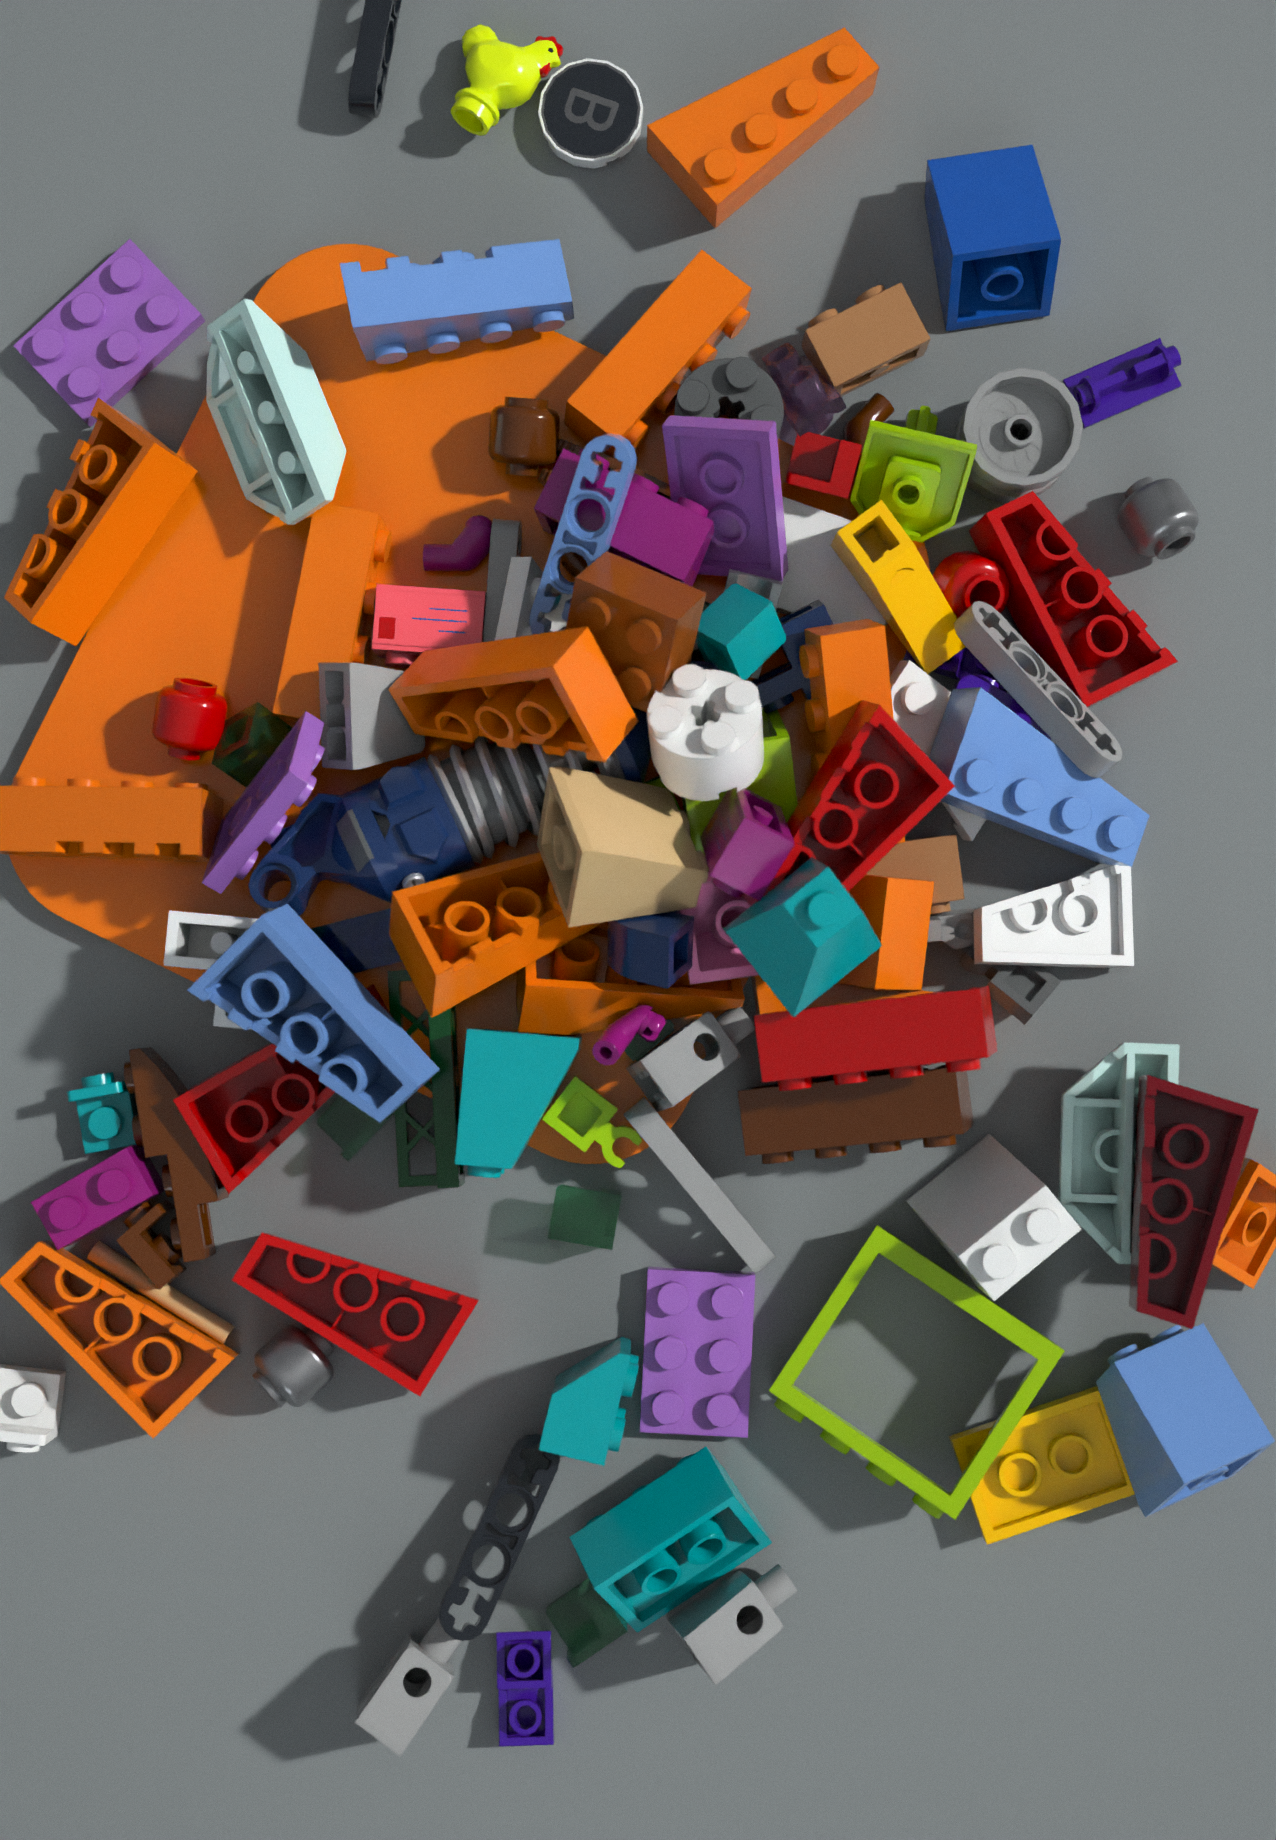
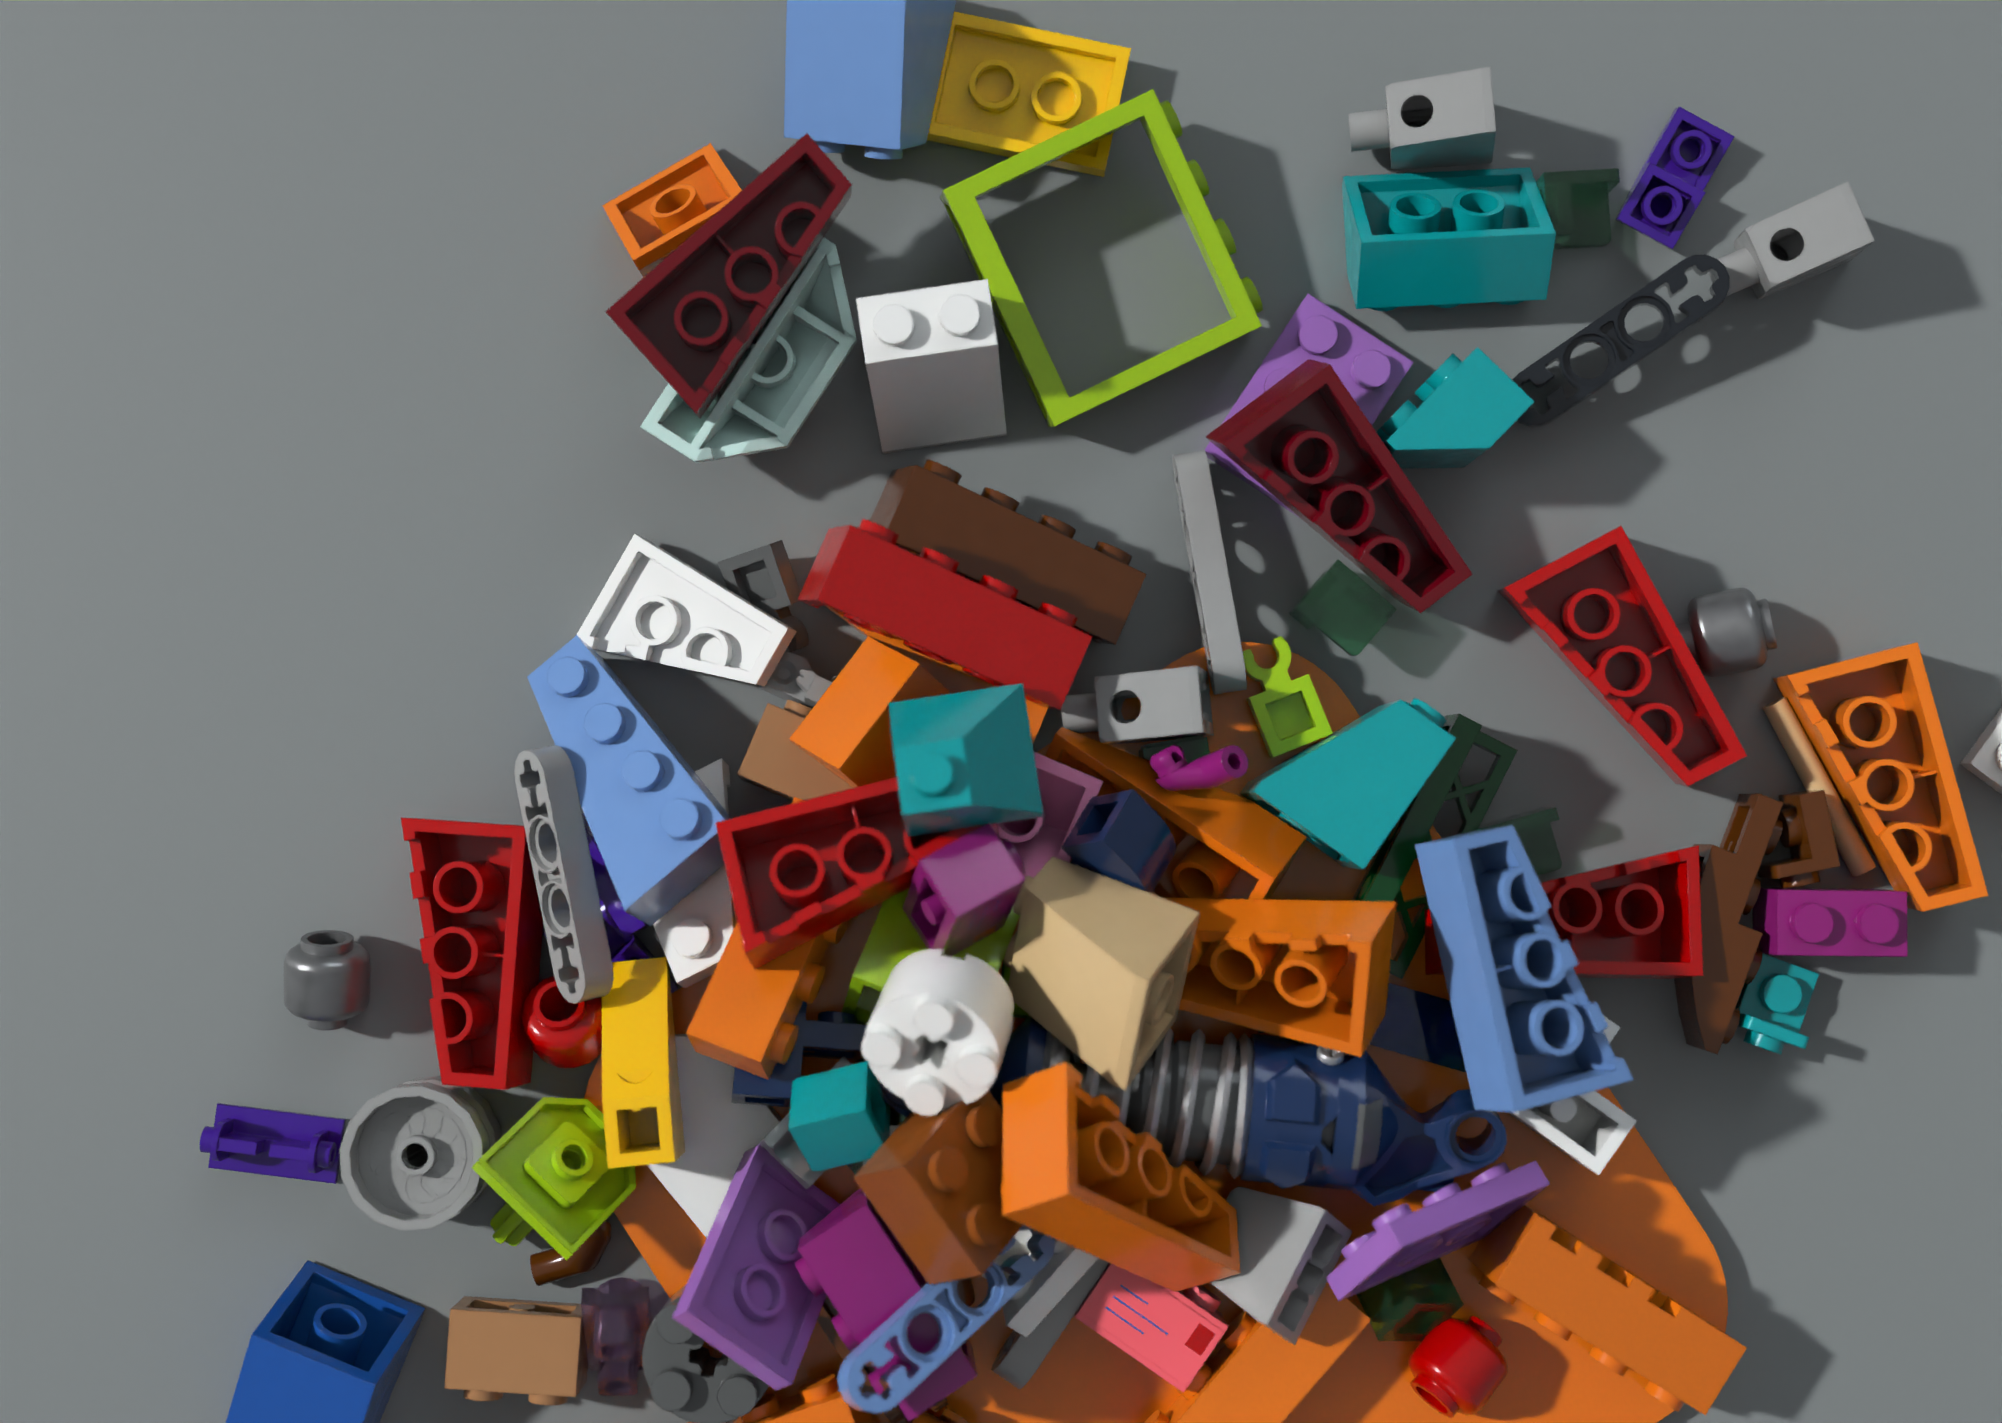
camera: 155 degrees left, 0 degrees up
(466, 550) = (1070, 1371): magenta arm -> none
(654, 1311) = (1336, 474): none -> dark red wedge
(823, 464) = (641, 1242): red panel -> none

